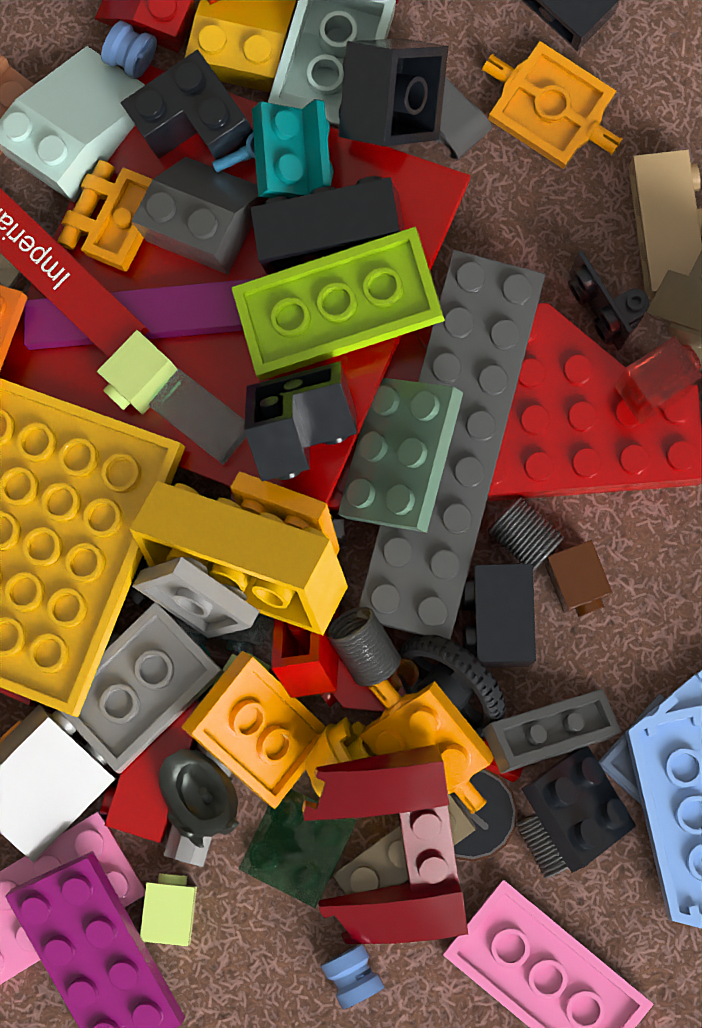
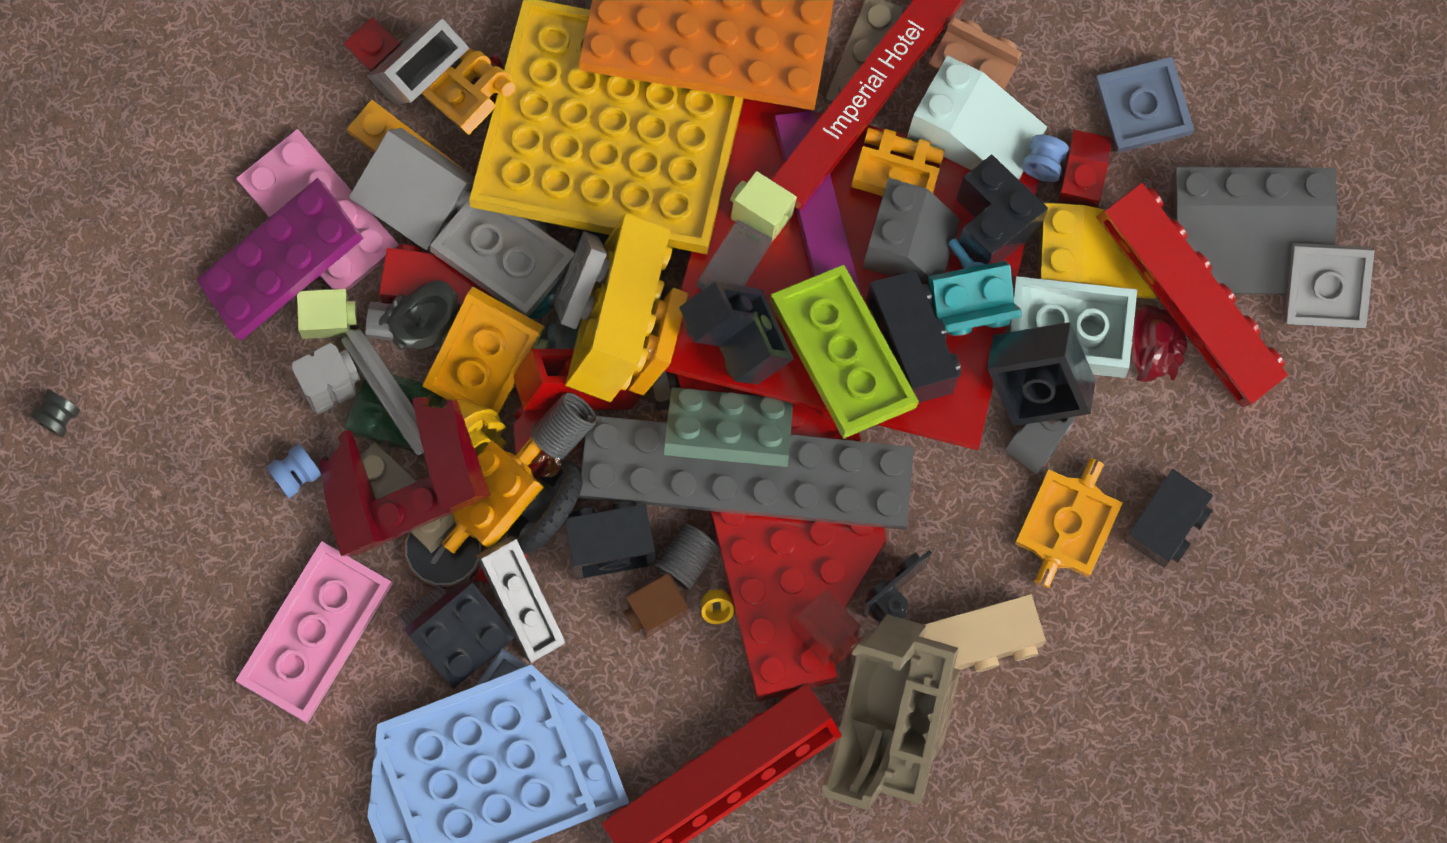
camera: 80 degrees right, 5 degrees down
(252, 921) = (326, 377): none -> light grey brick
(273, 853) = (384, 386): none -> light grey axle
(586, 510) = (719, 615): none -> yellow hinge

